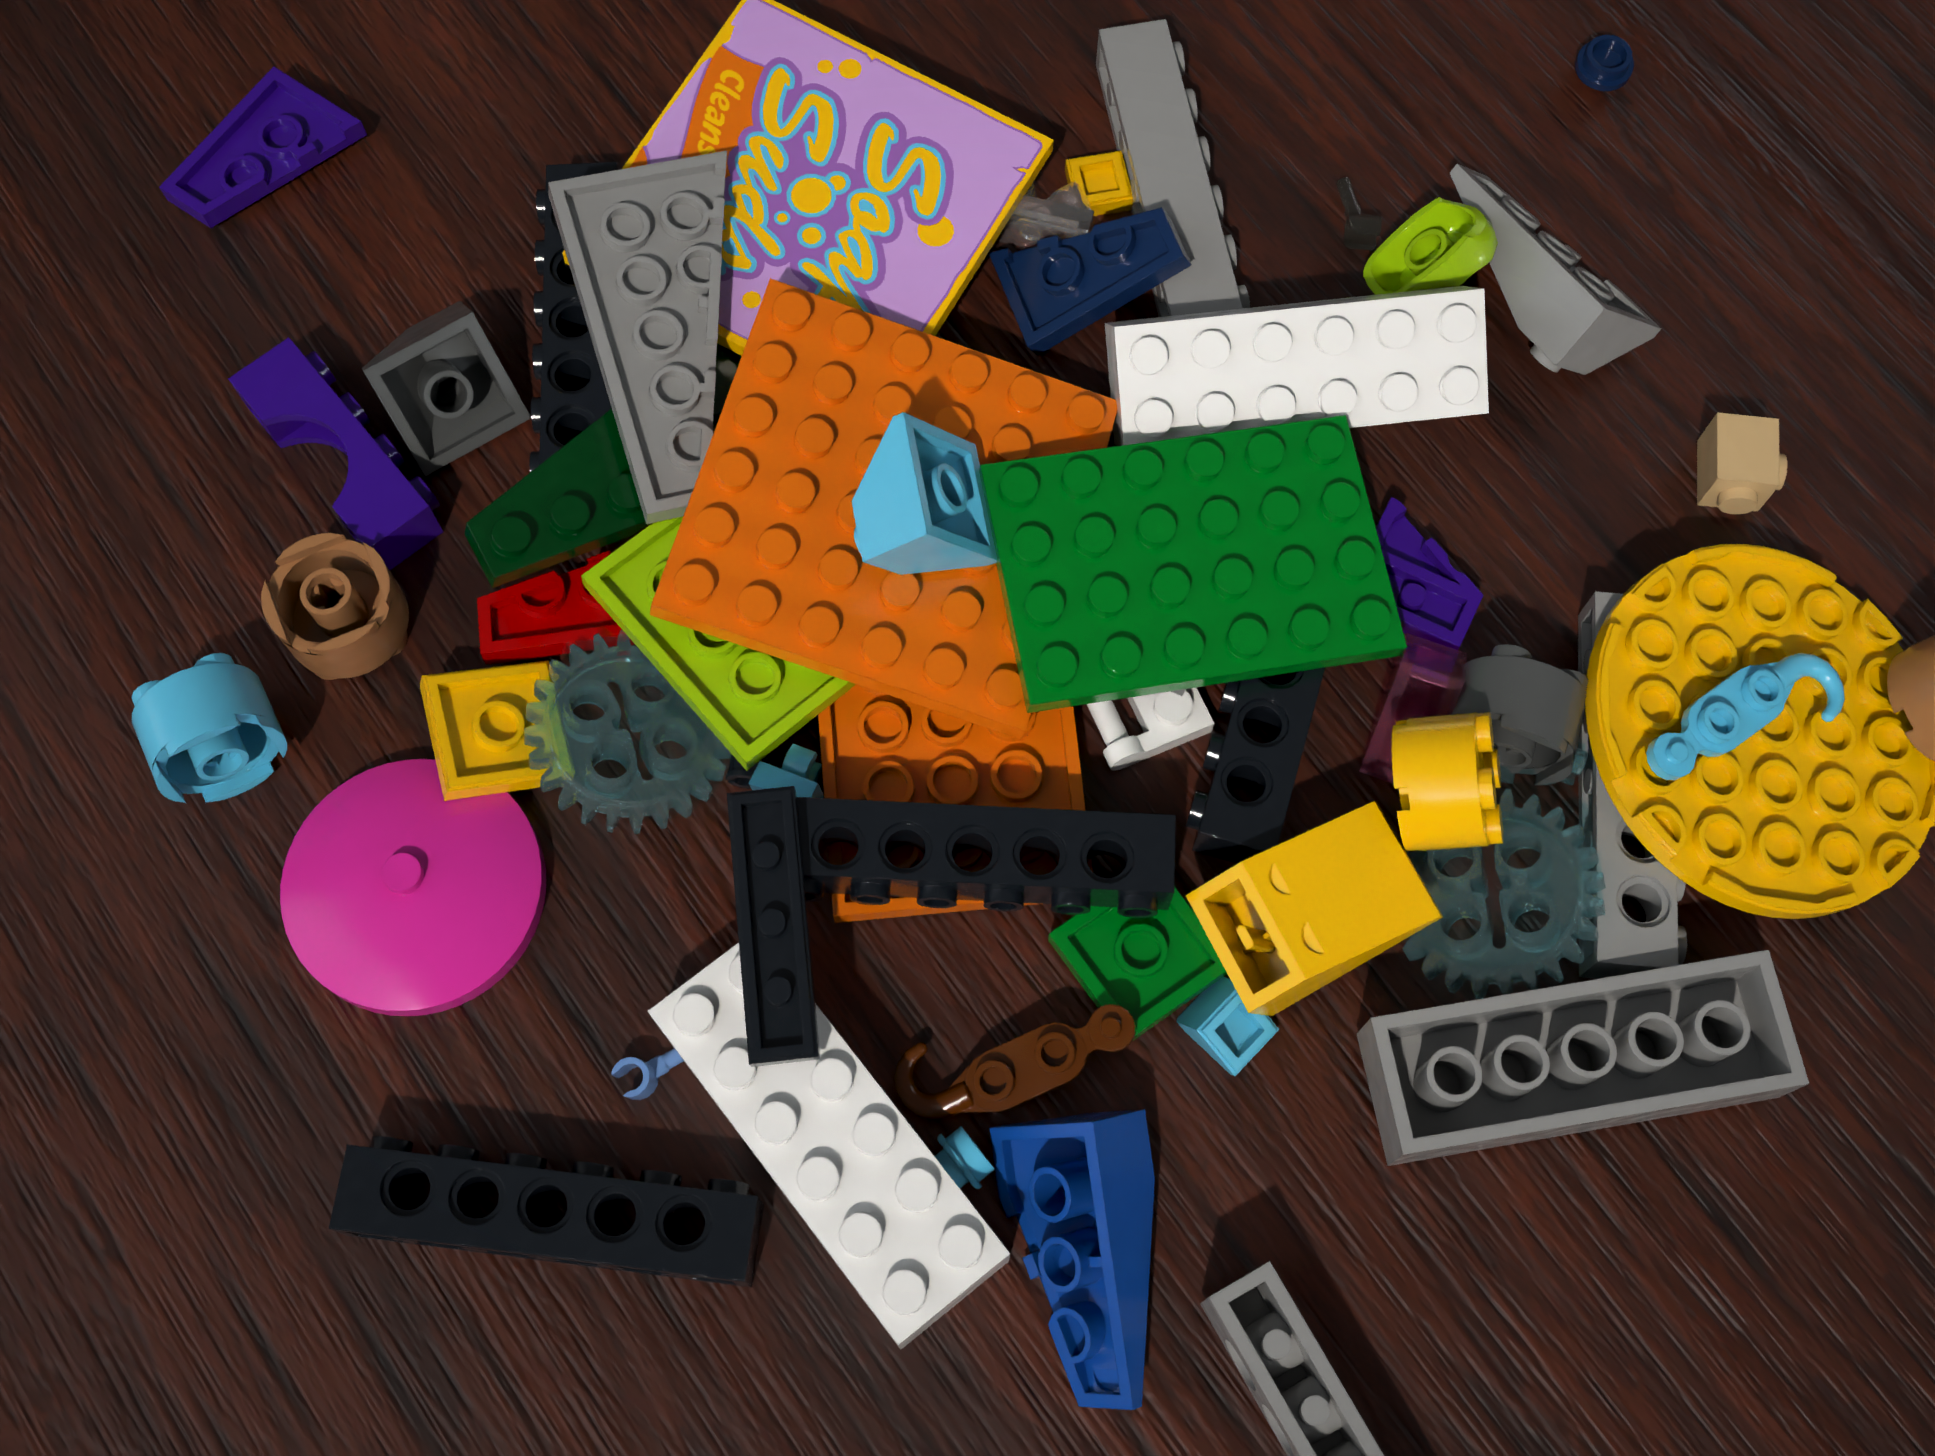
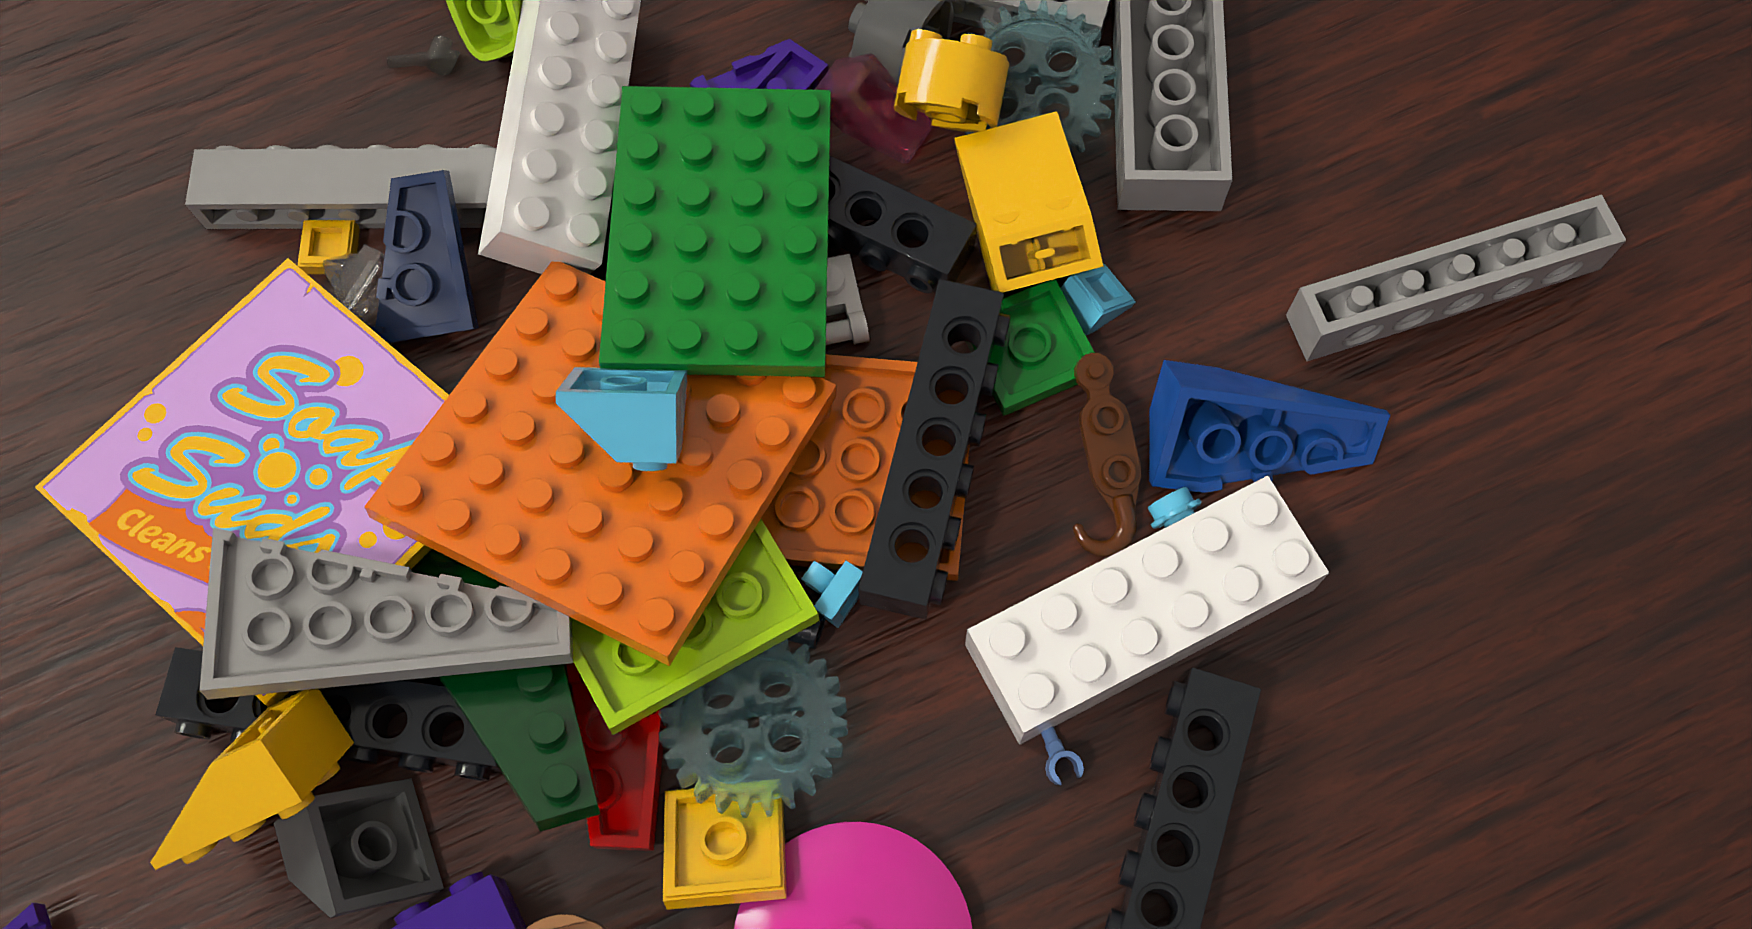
camera: 75 degrees left, 0 degrees up
(488, 269) = (260, 775): none -> yellow slope
(773, 927) = (975, 606): black tile -> none

